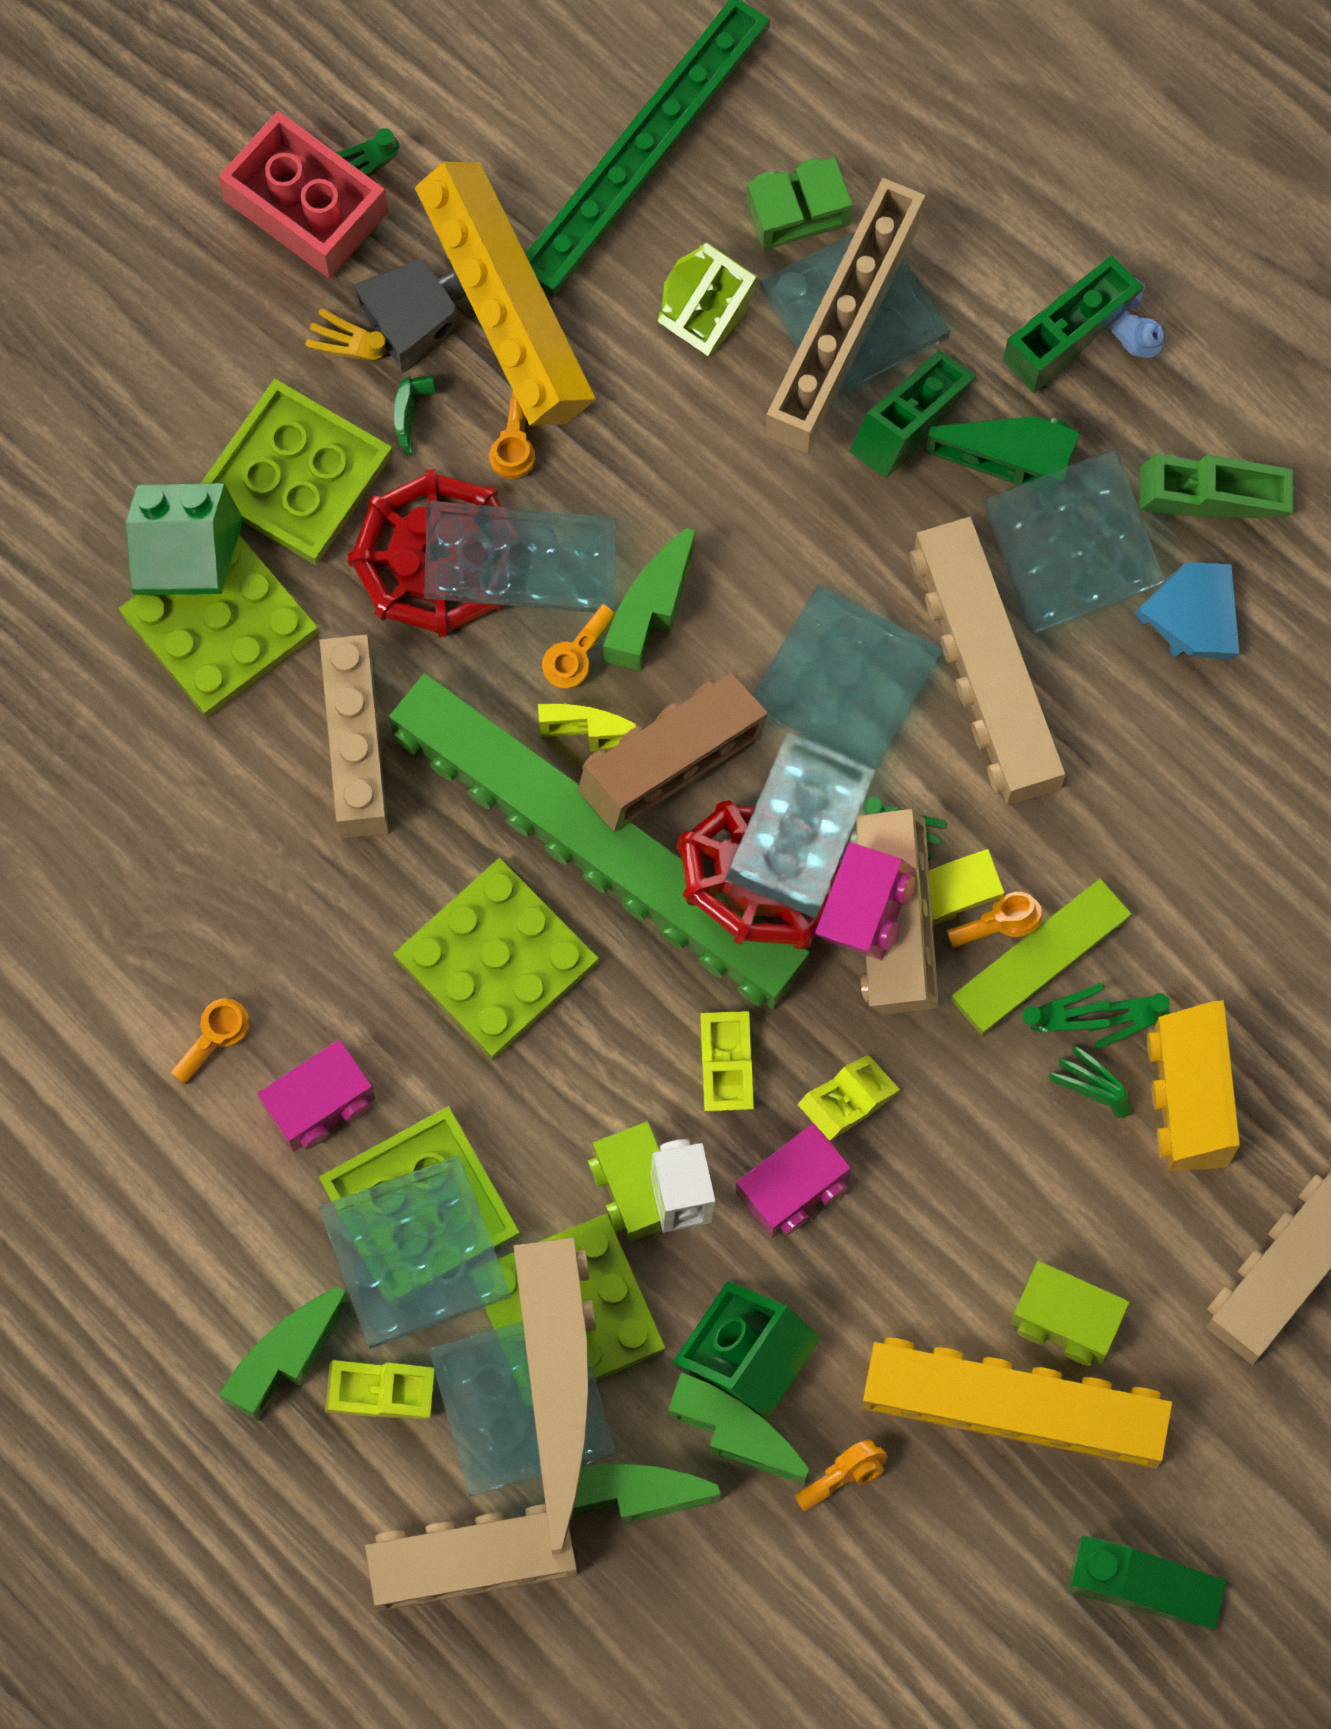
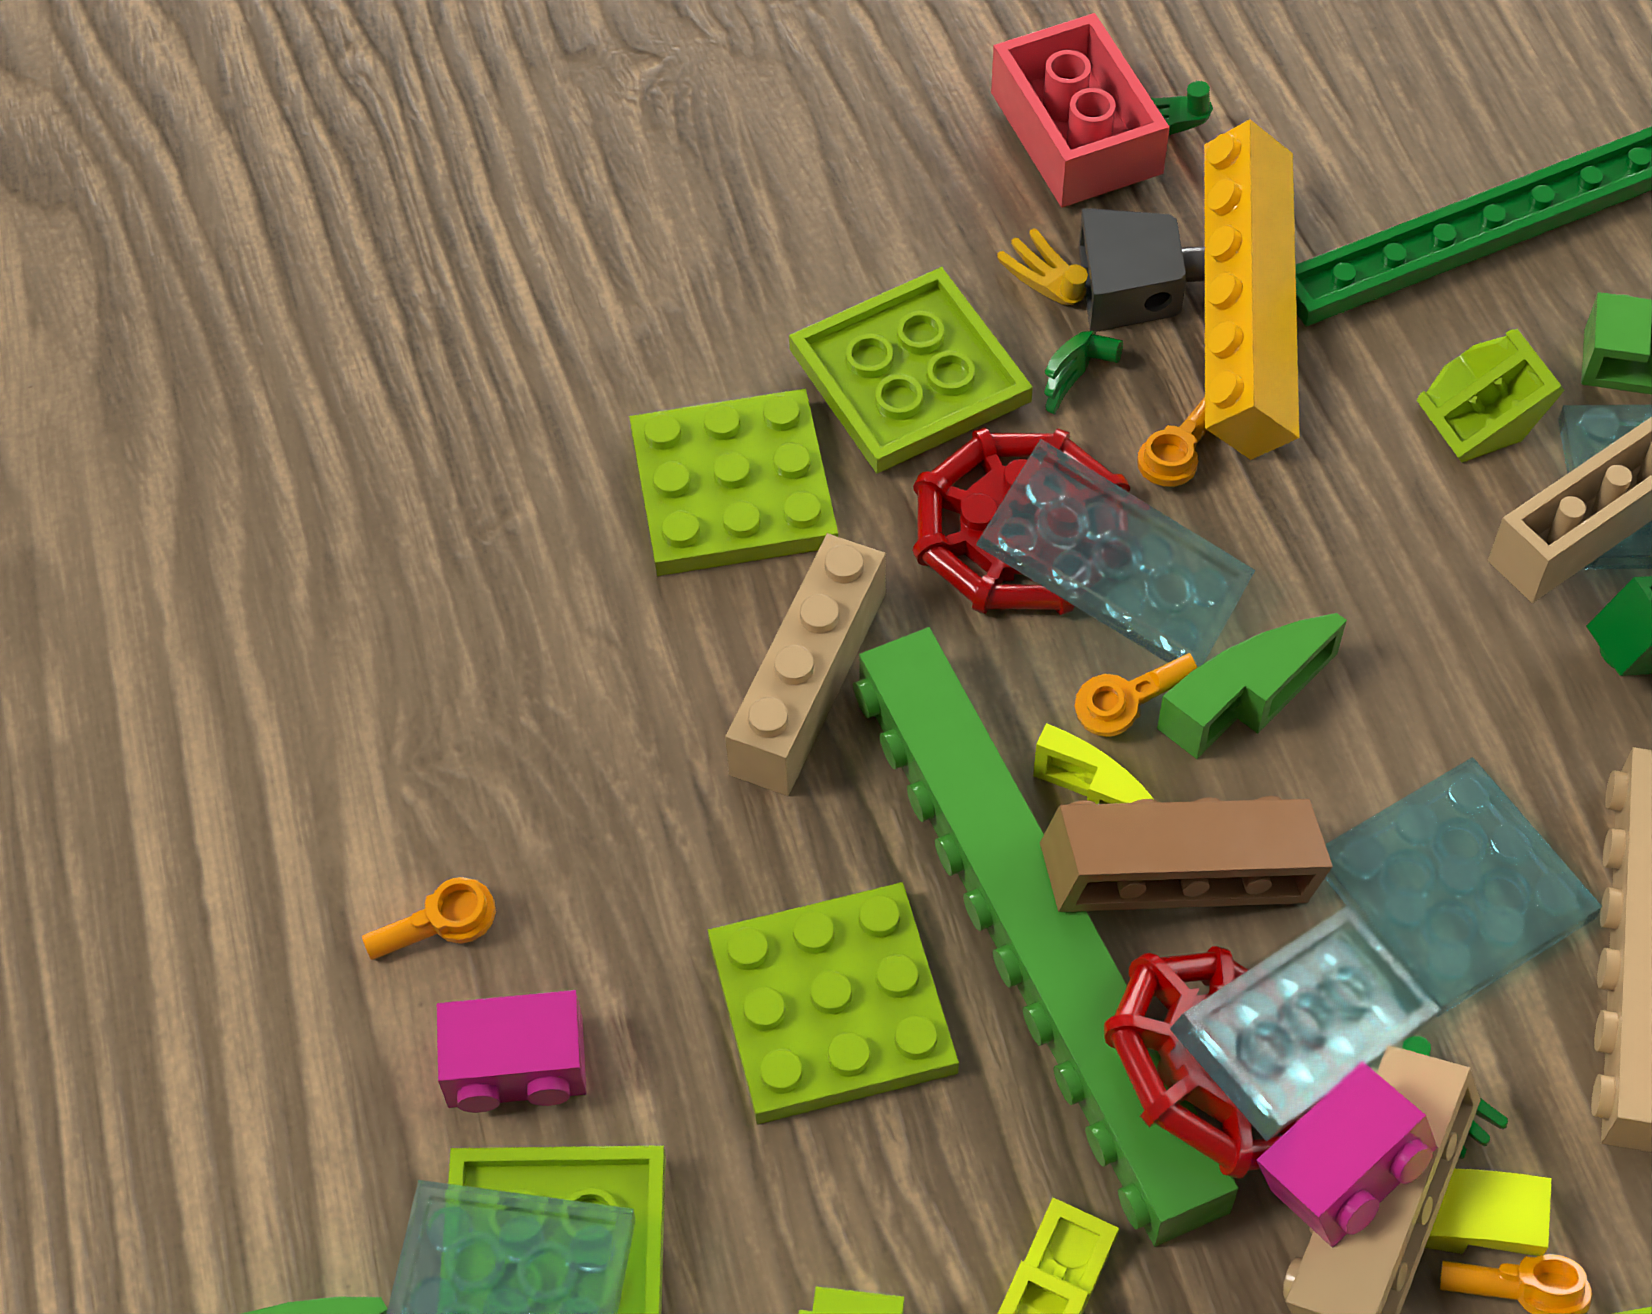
camera: 30 degrees right, 15 degrees down
(181, 538) = (739, 366): slope -> none

